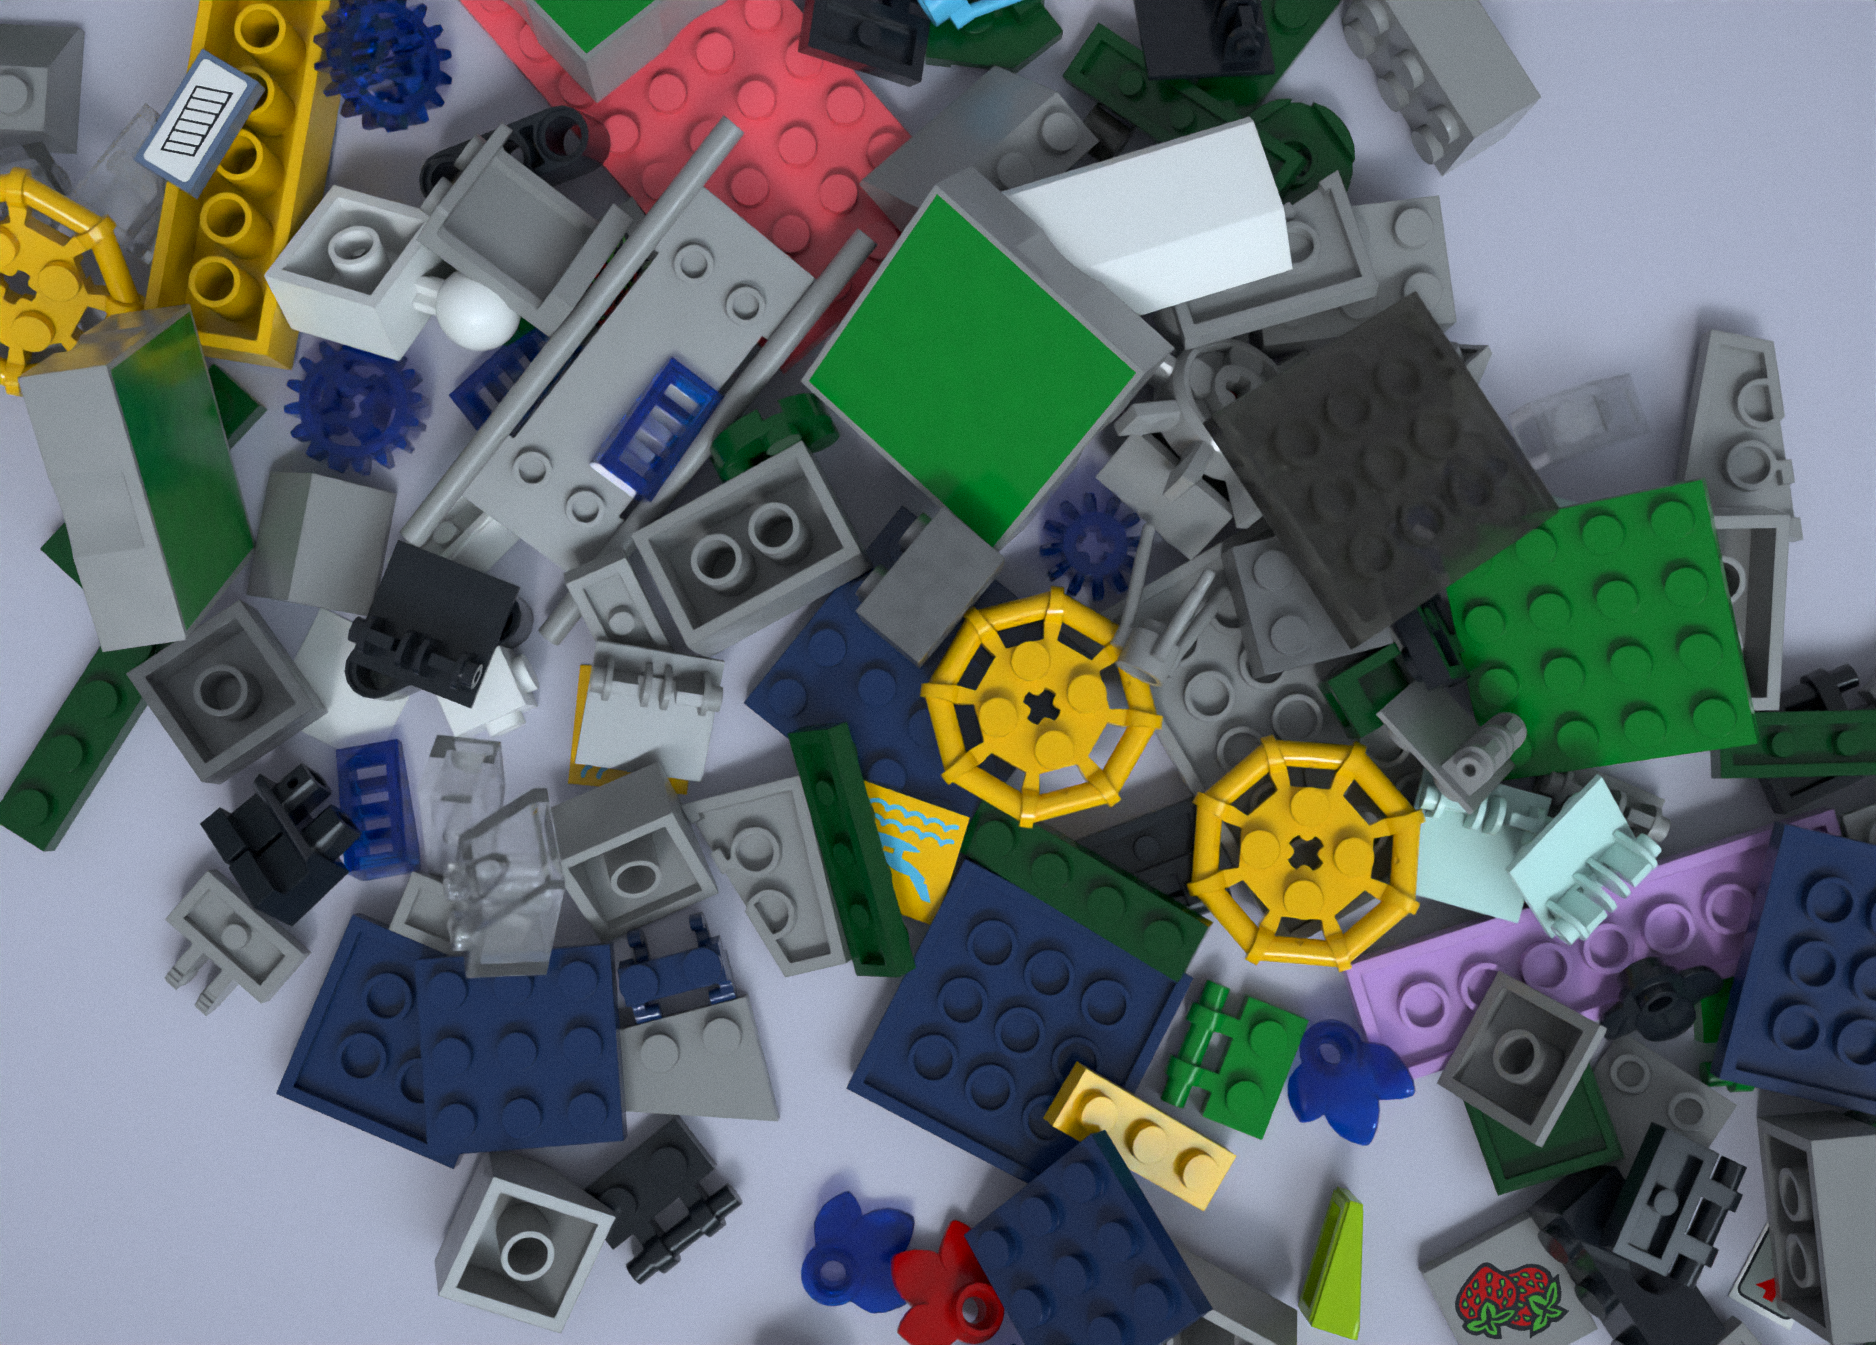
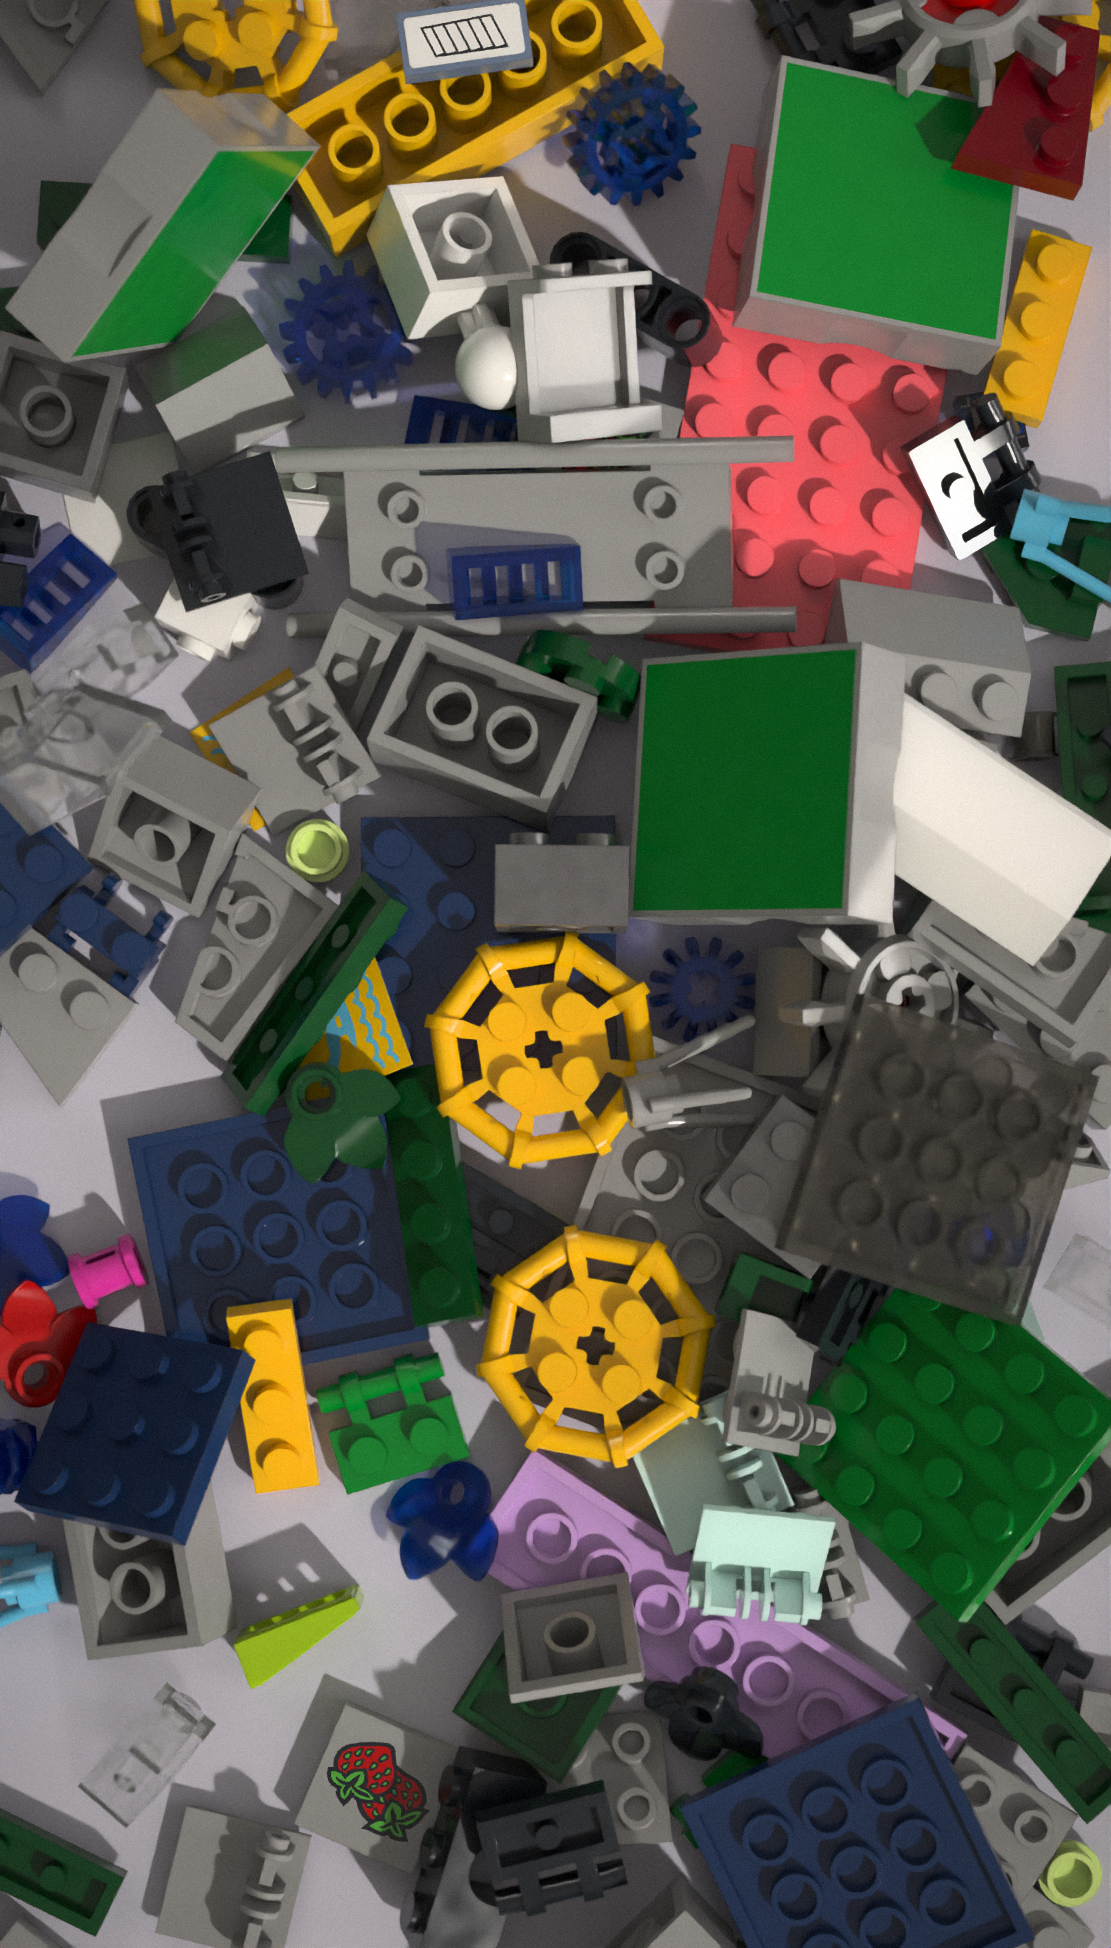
camera: 50 degrees right, 0 degrees up
(742, 757) = (317, 850): none -> yellowish green plate
(937, 1187) = (107, 1271): none -> dark pink bush
(974, 914) = (341, 1128): none -> dark green plate

